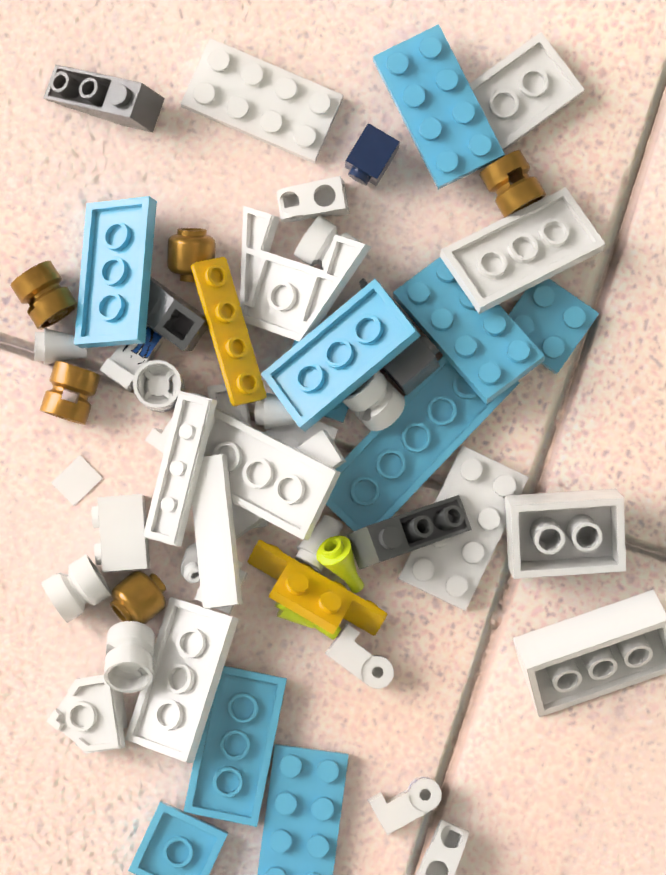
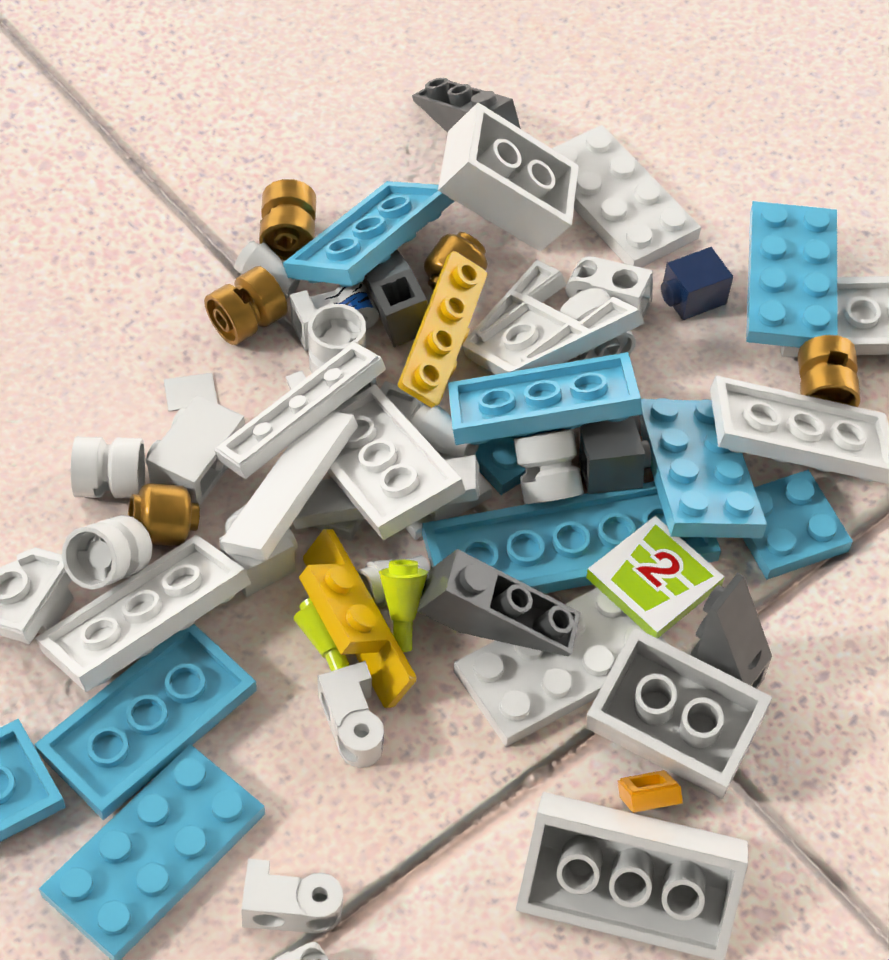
camera: 30 degrees right, 30 degrees down
(186, 161) = (508, 177): none -> white brick
(491, 437) = (654, 577): none -> tile
(573, 467) = (733, 634): none -> dark grey slope
(574, 592) = (649, 791): none -> light orange tile

